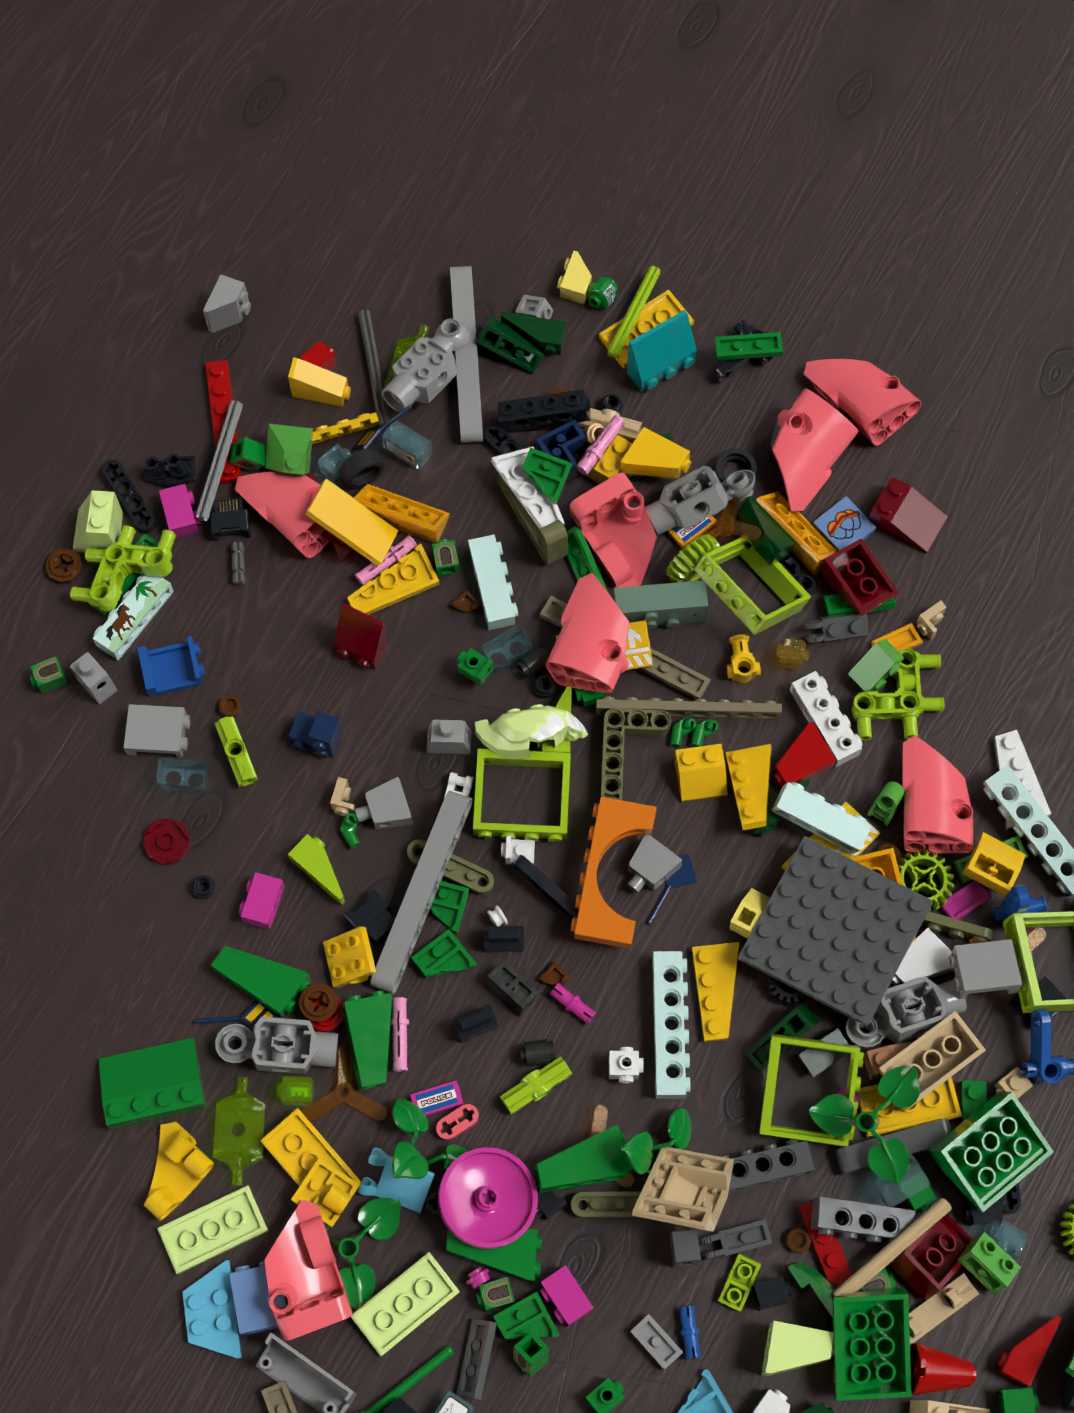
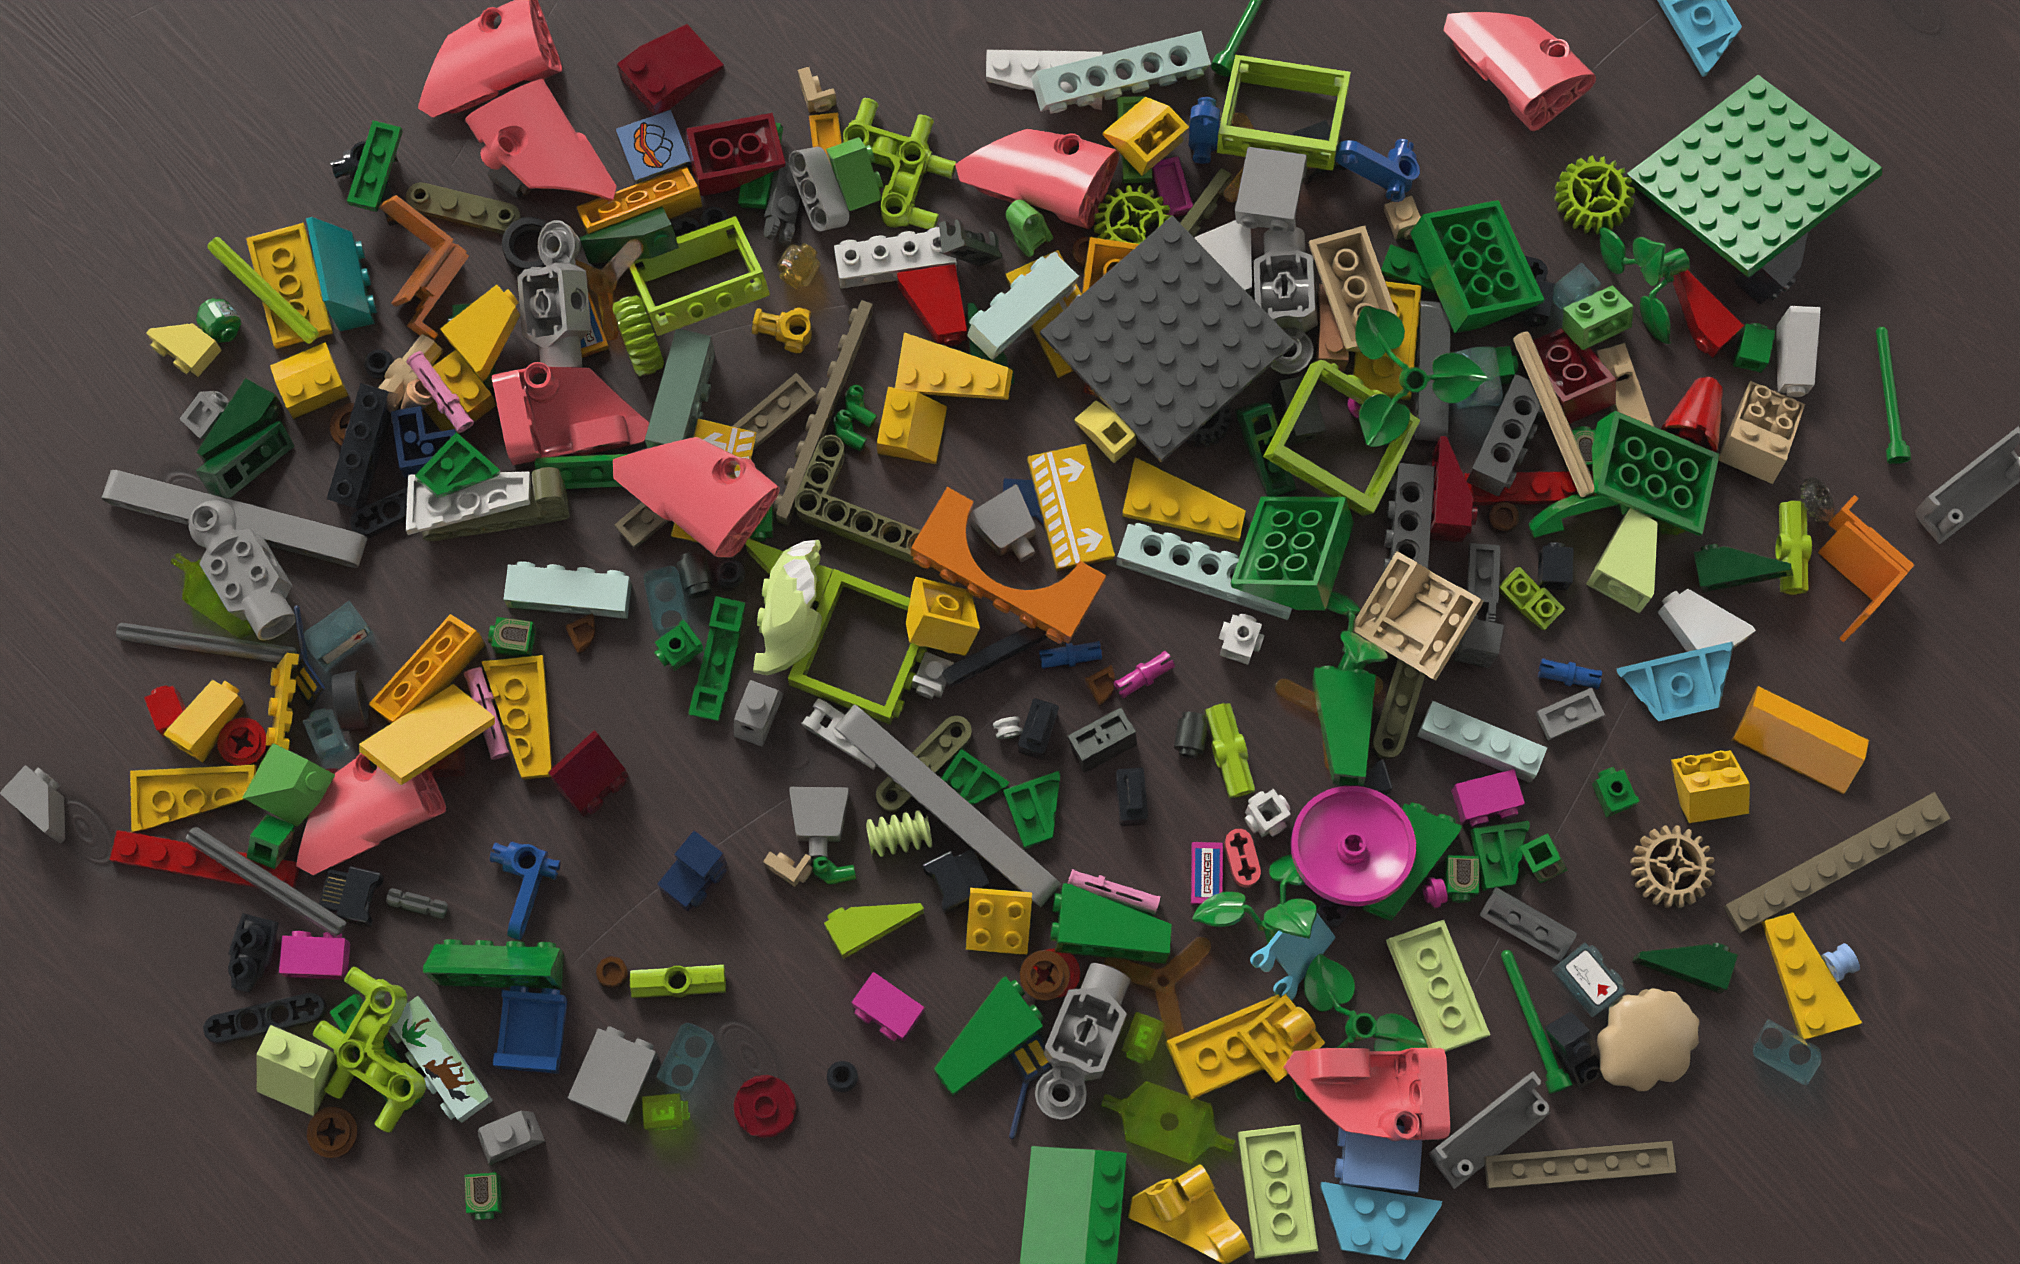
camera: 75 degrees left, 5 degrees up
(140, 773) = (665, 1112): none -> clear neon green brick
(207, 624) = (495, 965): none -> green slope
(264, 388) = (179, 793): none -> yellow wing
(274, 630) = (511, 860): none -> blue piece
(307, 407) = (238, 729): none -> red gear
(390, 866) = (899, 833): none -> yellowish green piece
(477, 700) = (718, 659): none -> green slope
(491, 1120) = (1270, 803): none -> white brick
(559, 837) = (941, 617): none -> yellow slope
(569, 945) = (1070, 654): none -> blue pin
(581, 363) = (308, 380): none -> yellow slope
(608, 1277) = (1481, 741): none -> light aqua brick
(683, 908) = (1070, 507): none -> yellow tile
(687, 413) = (434, 270): none -> orange piece
(705, 1081) = (1294, 550): none -> green slope
(747, 416) = (462, 207): none -> olive plate
(787, 1190) = (1452, 499): none -> dark red slope
(854, 646) = (818, 188): none -> light grey beam
(855, 764) = (968, 245): none -> pearl dark grey hinge
(1052, 1302) = (1654, 266): none -> green plant

